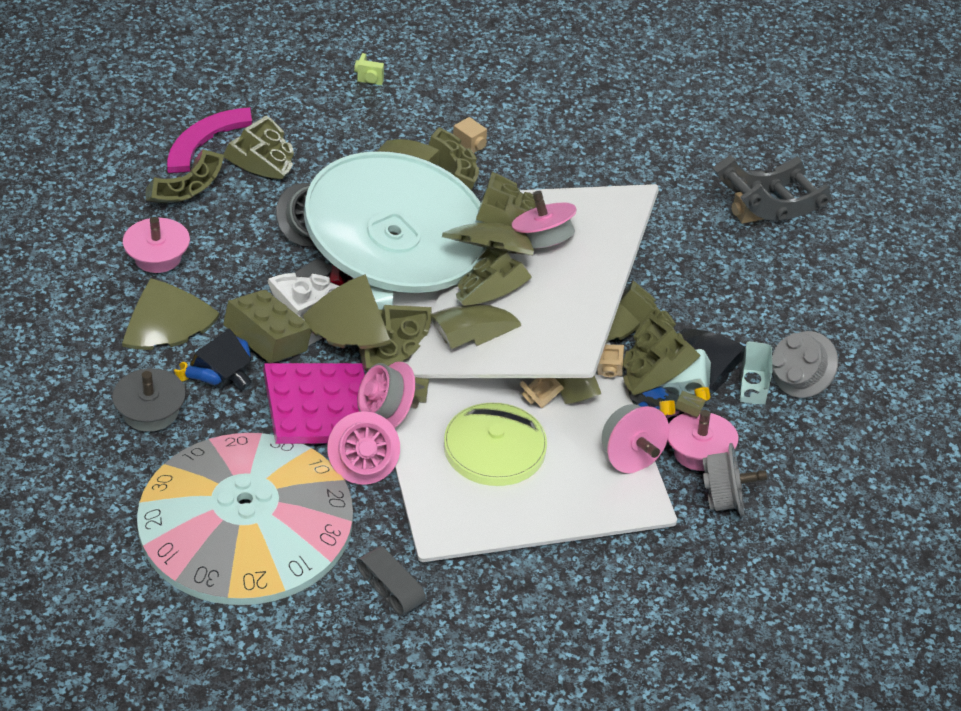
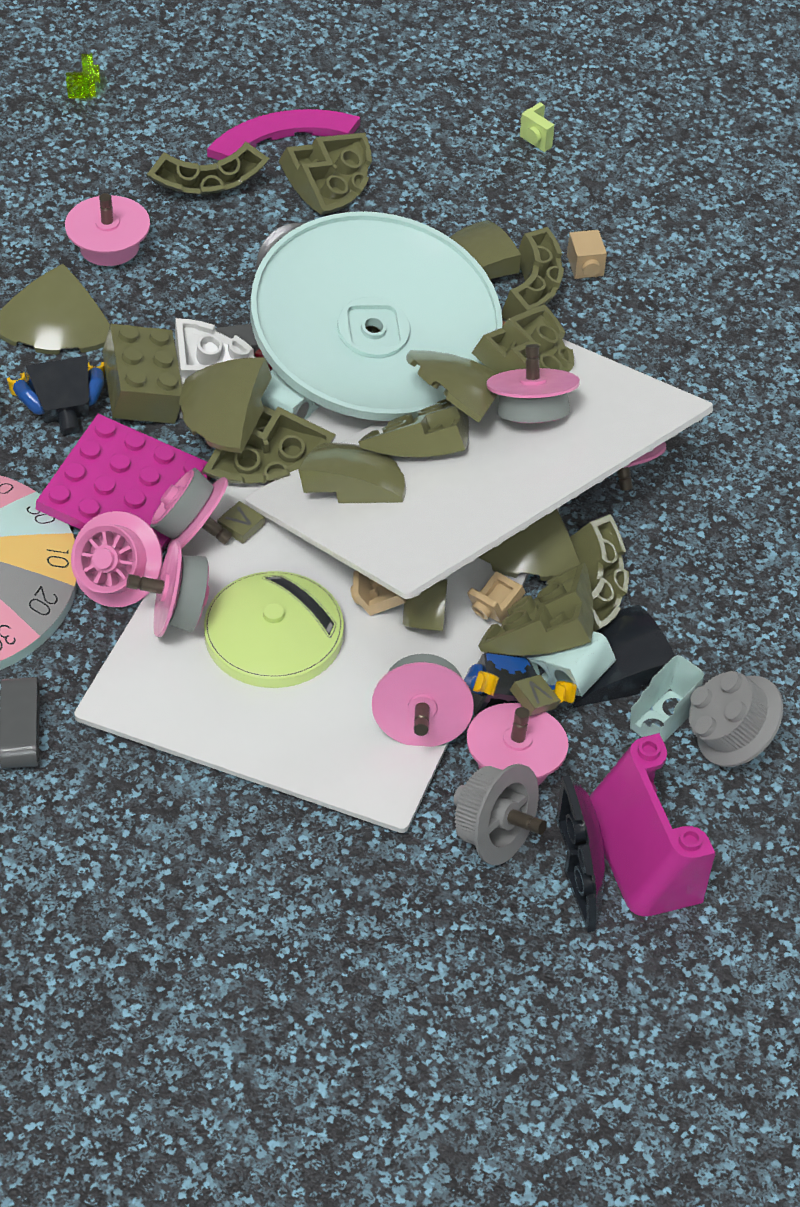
camera: 35 degrees right, 5 degrees up
(39, 153) = (83, 83): none -> clear neon green bracket
(428, 445) = (179, 590): none -> piece
(794, 480) = (584, 850): none -> black brick
(813, 452) = (650, 861): none -> dark pink windscreen

